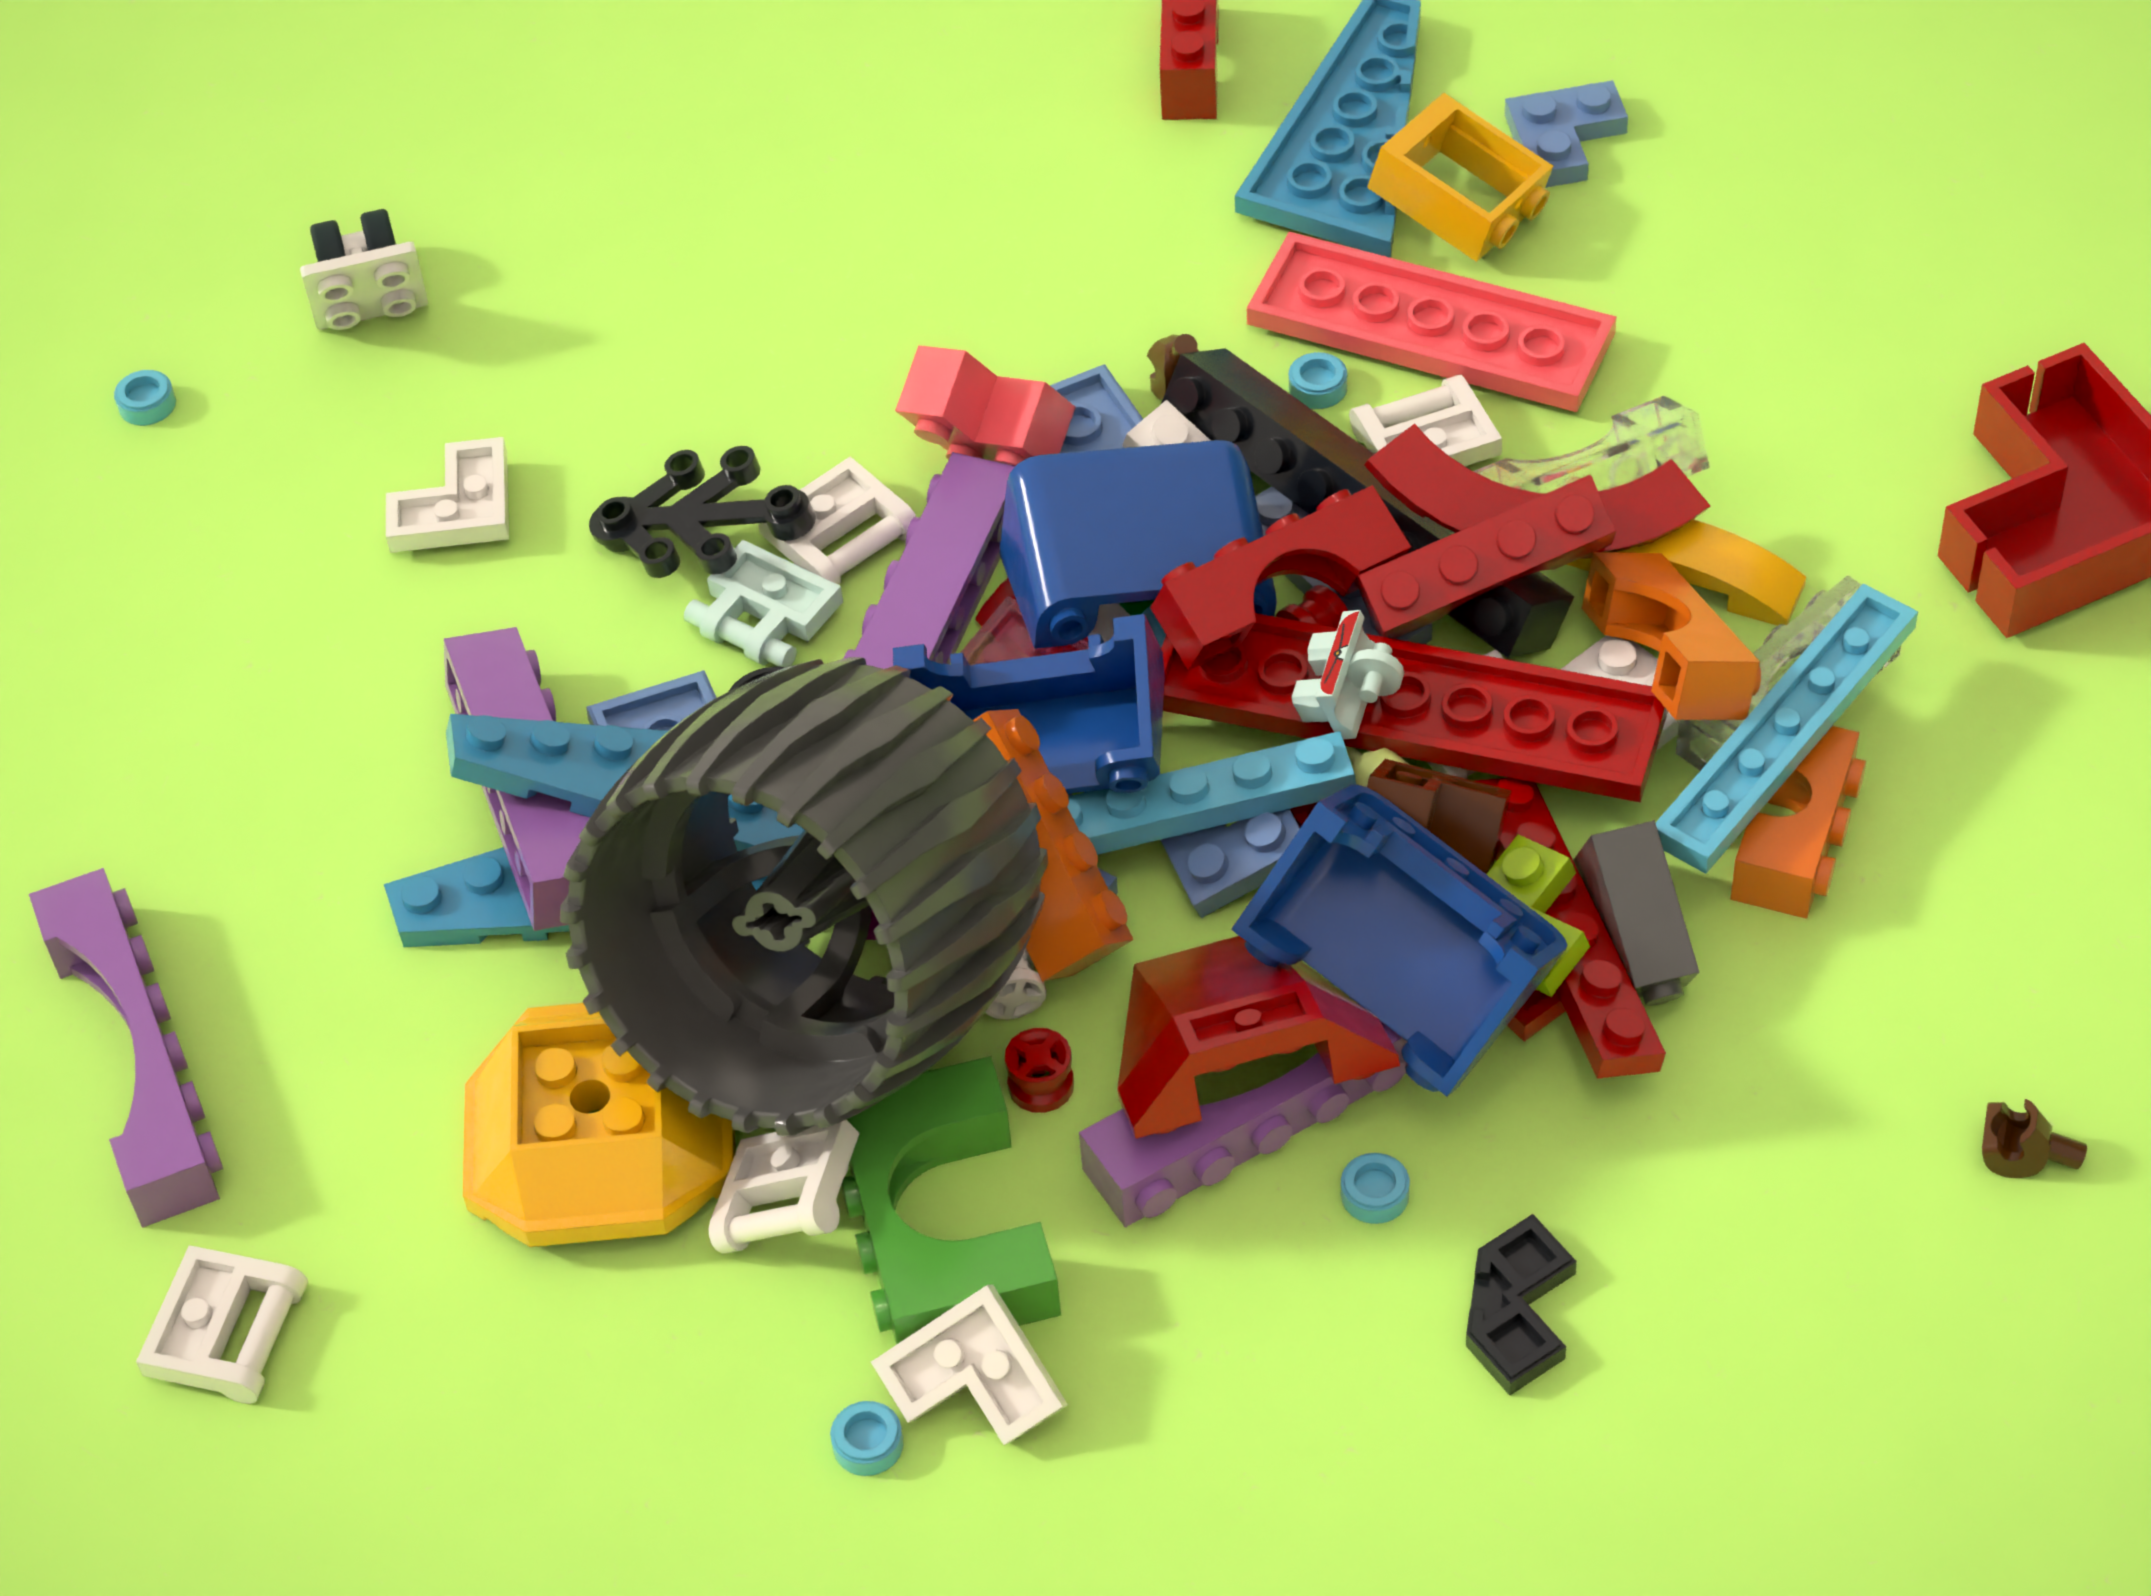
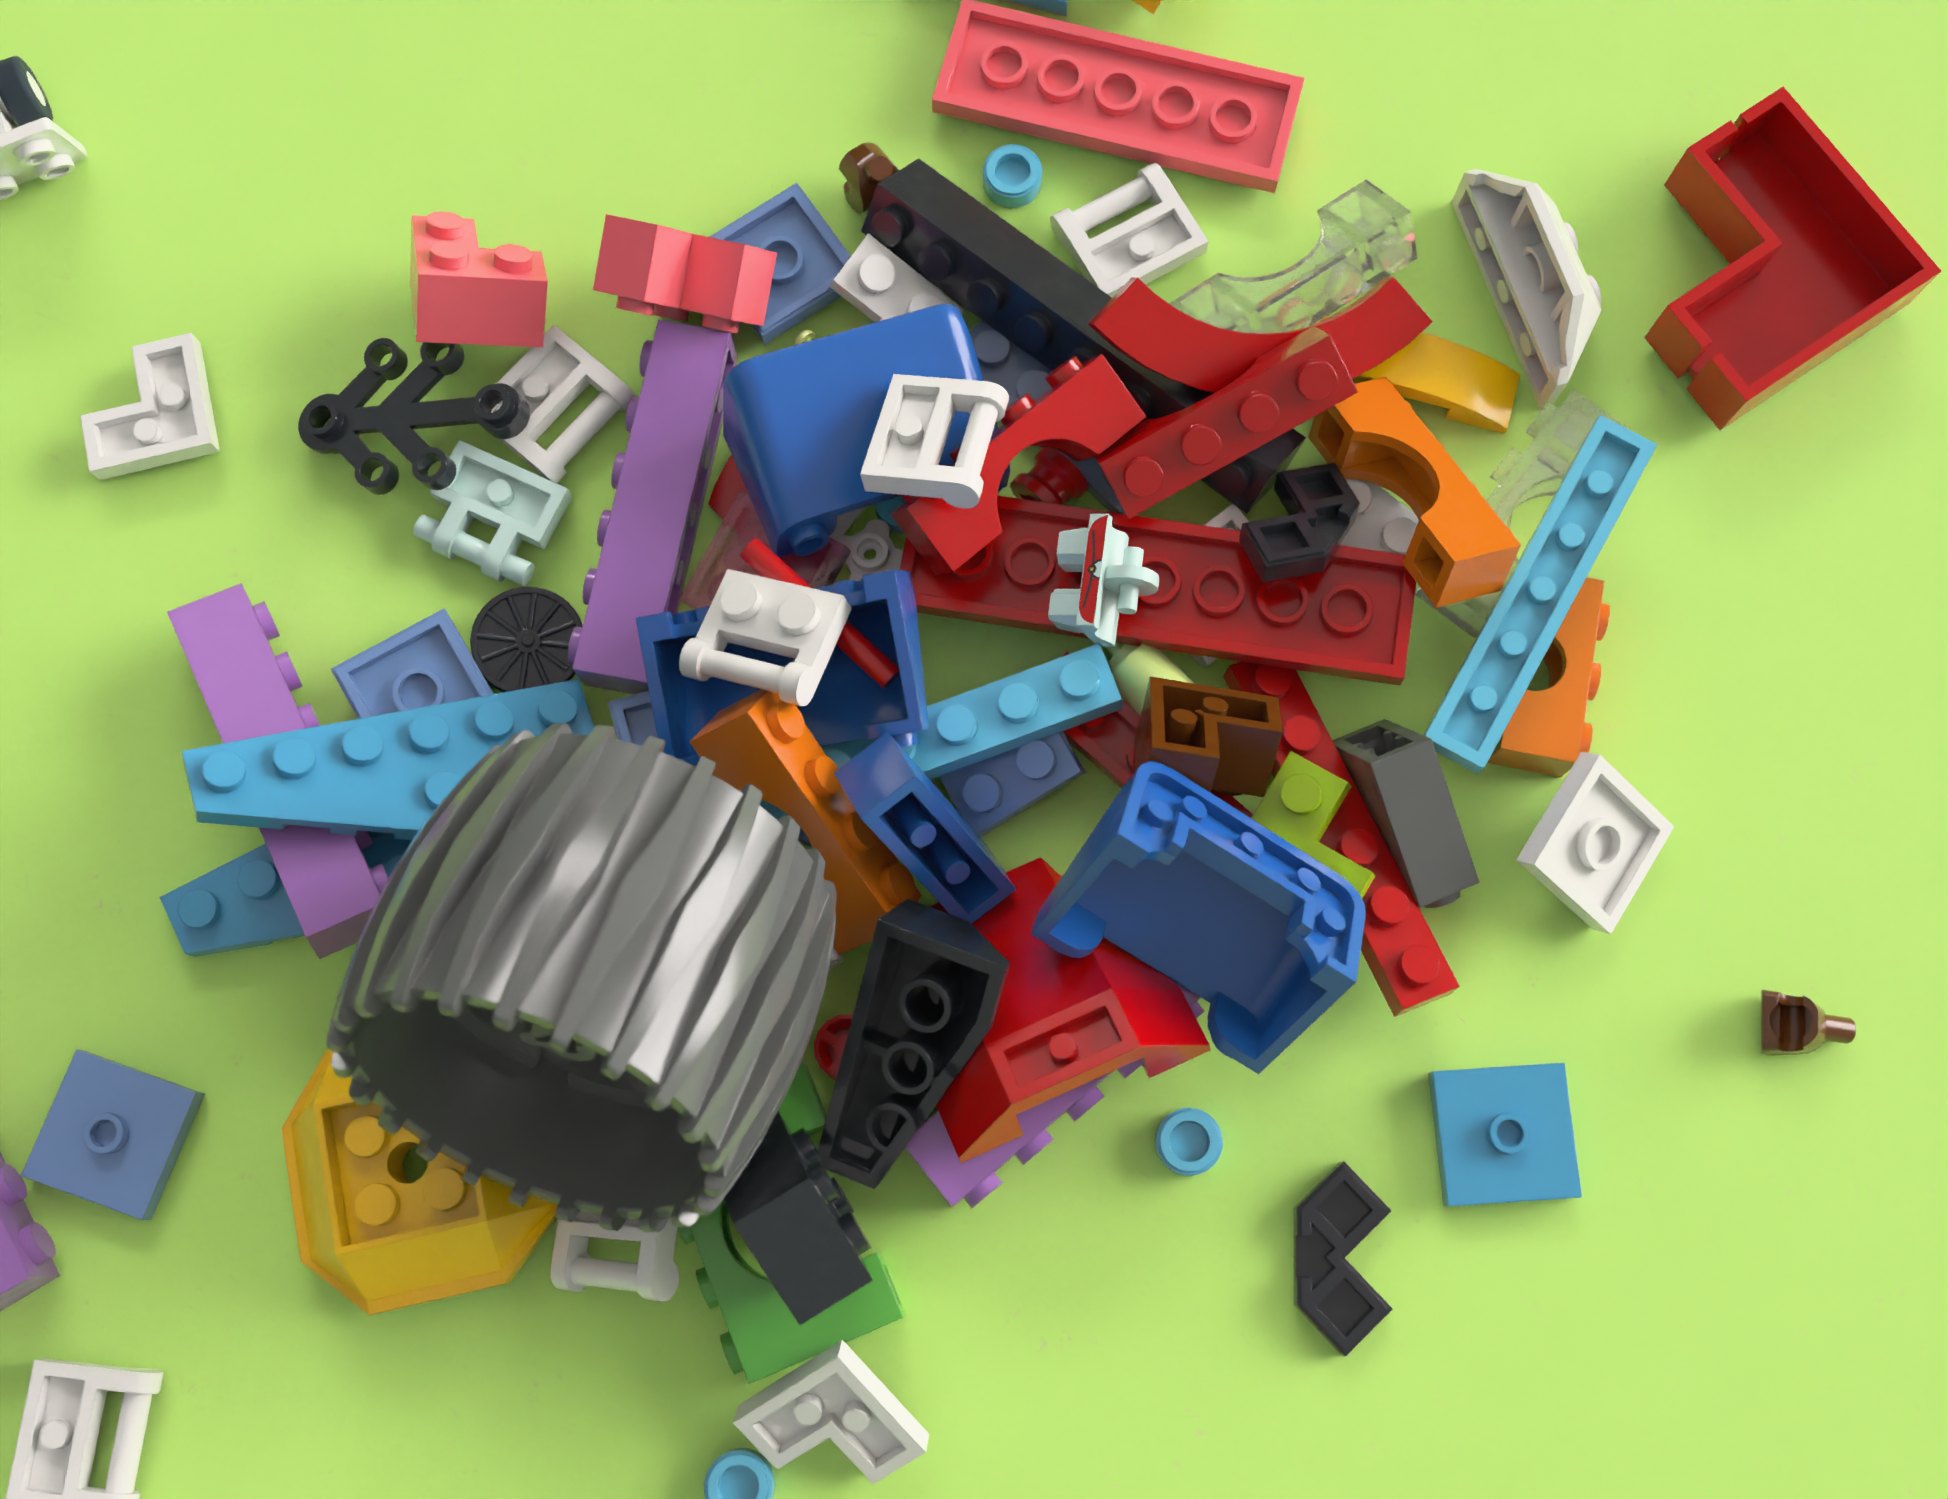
camera: 10 degrees left, 25 degrees up
(298, 1079) = (113, 1135): none -> medium blue plate
(782, 413) = (473, 291): none -> coral brick
(961, 1160) = (798, 1223): none -> black brick
(1017, 667) = (772, 619): none -> white plate
(1070, 669) = (850, 641): none -> red bar
(1101, 1012) = (914, 1027): none -> black wedge
(1145, 860) = (924, 829): none -> blue brick
(1184, 517) = (914, 432): none -> white plate
(1562, 656) = (1305, 540): none -> black tile
(1705, 1211) = (1504, 1134): none -> dark azure plate
(1823, 484) = (1531, 275): none -> white wedge
(1826, 954) = (1595, 842): none -> white plate

